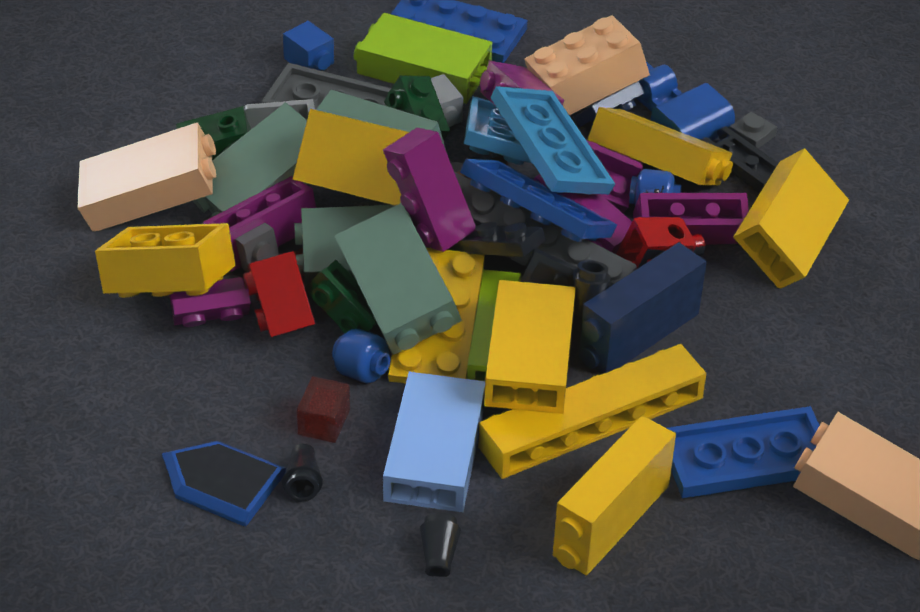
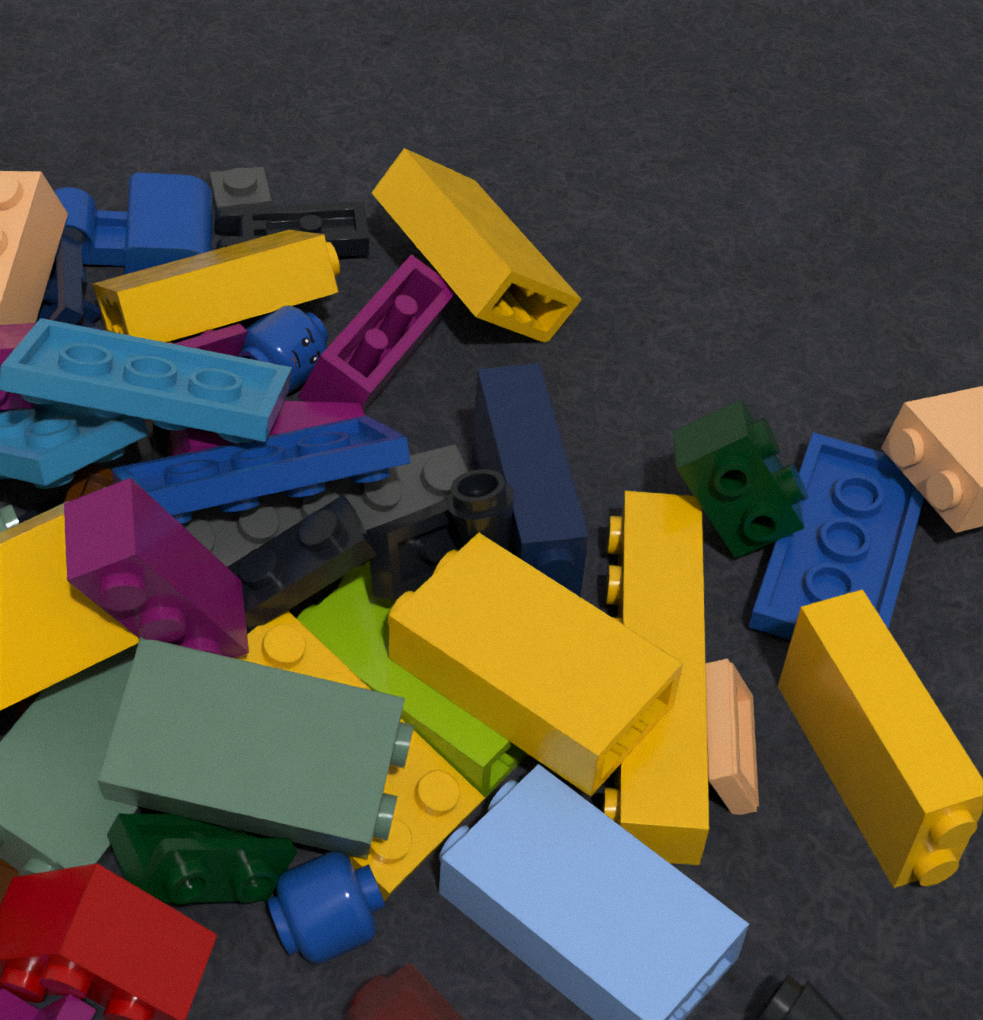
camera: 60 degrees left, 5 degrees up
(573, 451) = (731, 738): none -> light nougat tile
(654, 235) = (422, 395): red torso -> none
(725, 377) = (739, 479): none -> dark green brick

